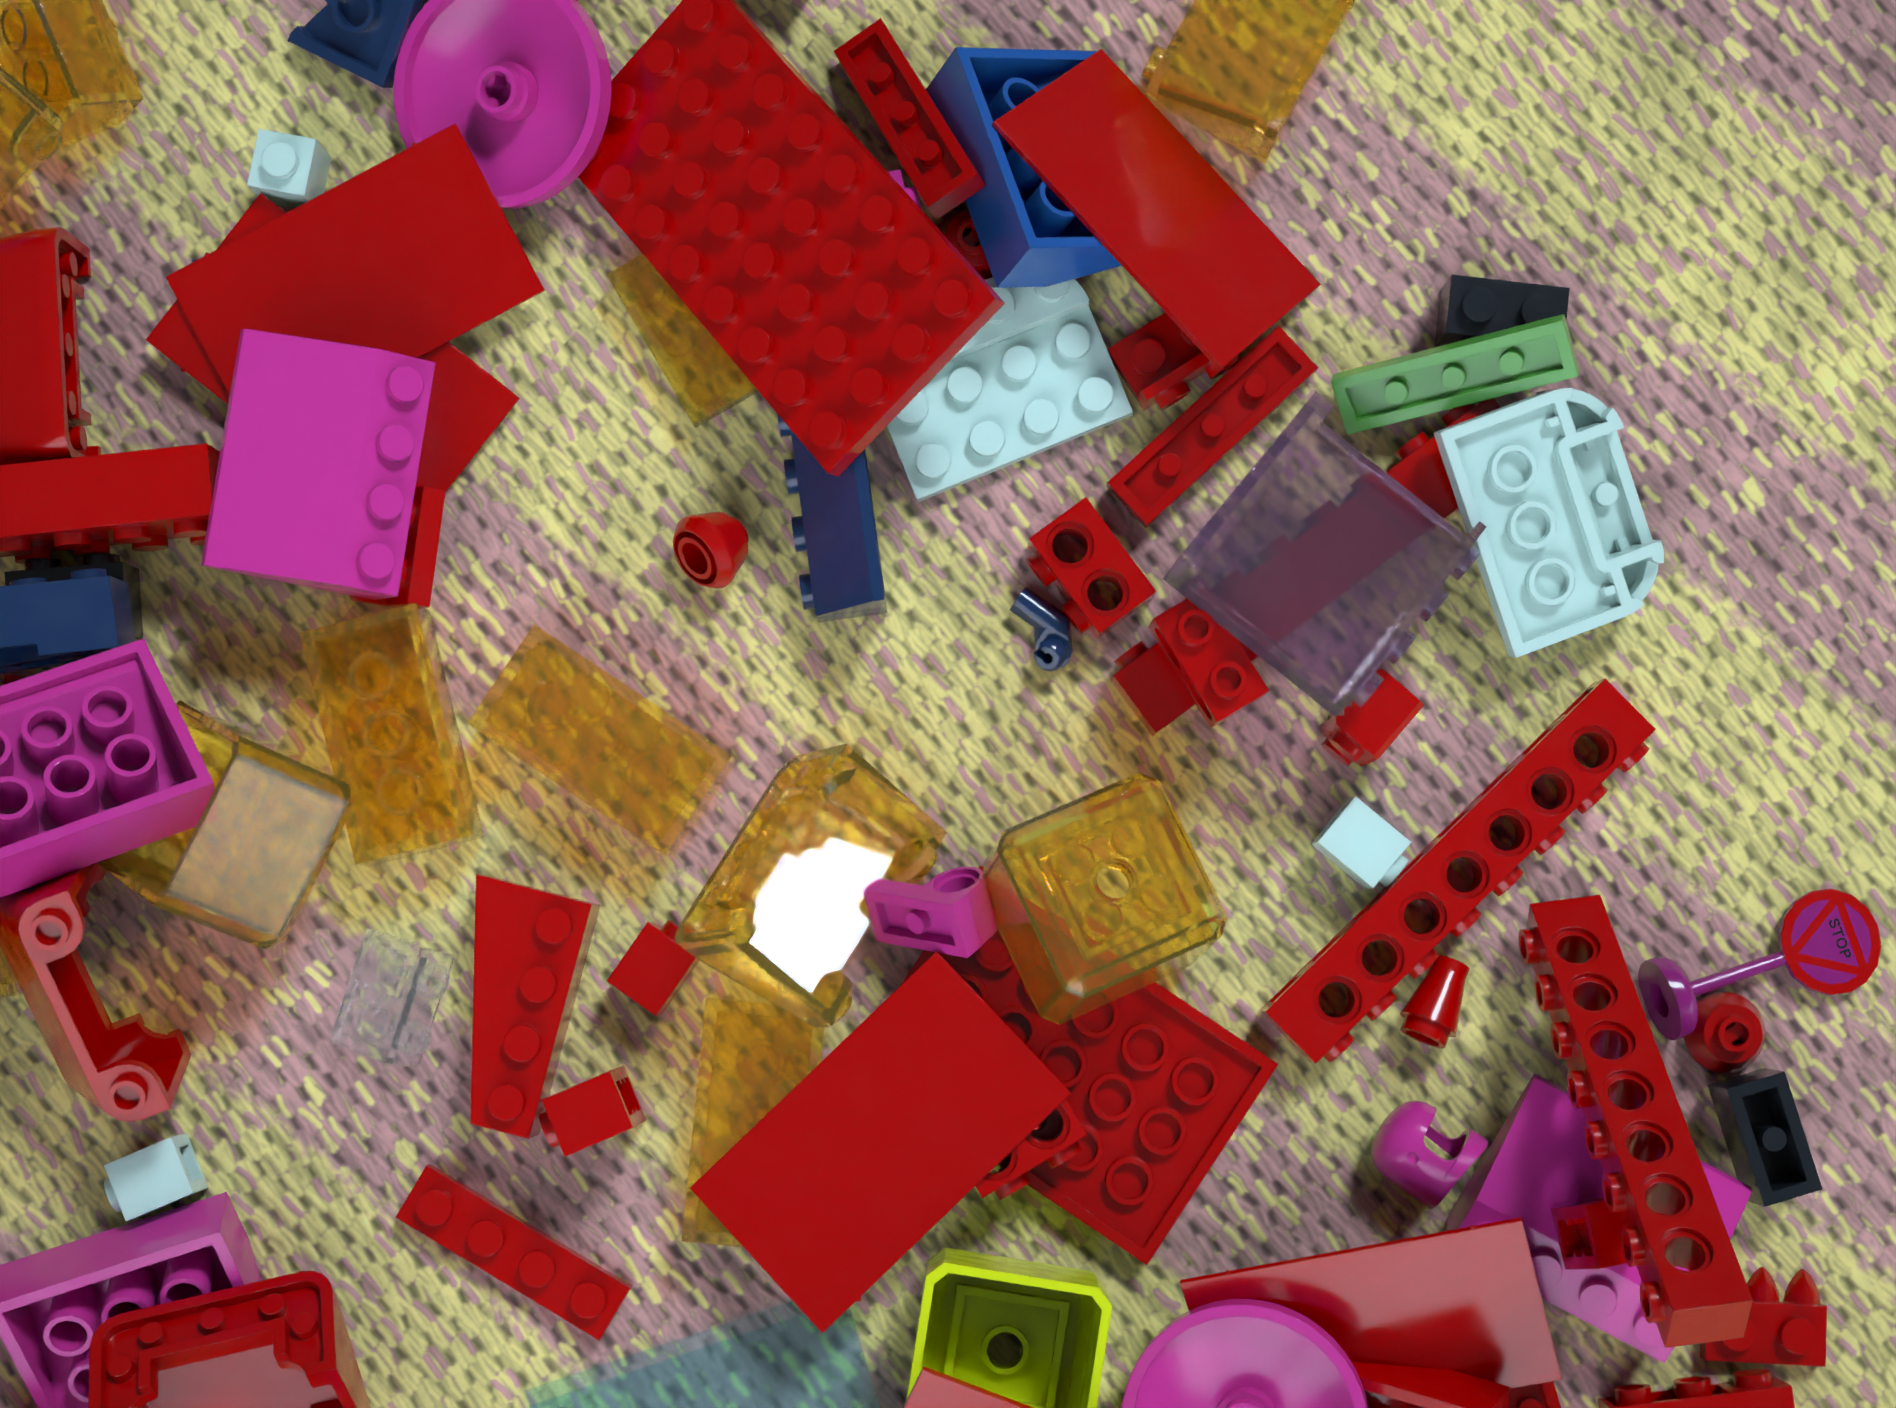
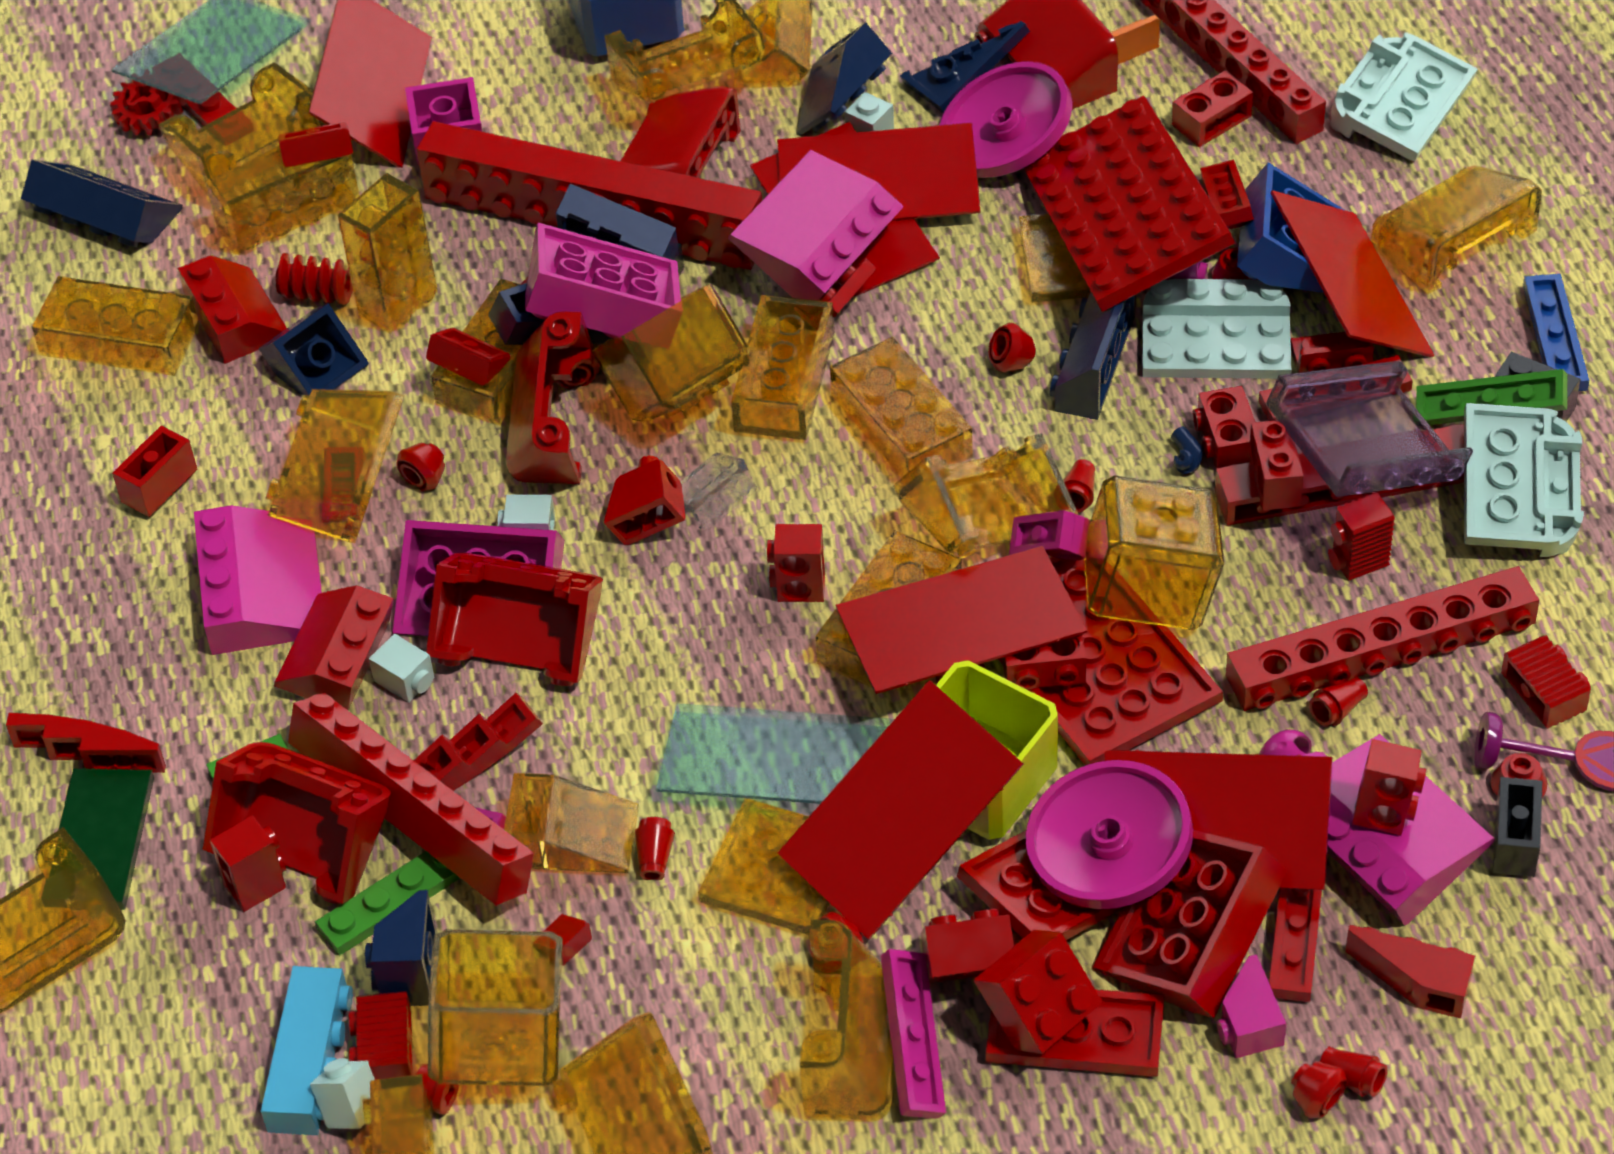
camera: 25 degrees right, 35 degrees down
(202, 108) = (841, 76): none -> dark blue slope
(311, 1076) = (645, 501): none -> red torso
(514, 1251) = (711, 633): red plate -> none
(524, 992) = (801, 488): red wedge -> none
(653, 967) = (870, 522): red brick -> none
(919, 764) = (1081, 484): none -> red cone
(1363, 844) = (1326, 599): light aqua brick -> none
(1482, 177) = (1555, 325): none -> blue plate
(1634, 1118) = (1421, 720): red brick -> none
(1705, 850) = (1546, 681): none -> red brick
(1776, 1329) = (1492, 950): red plate -> none

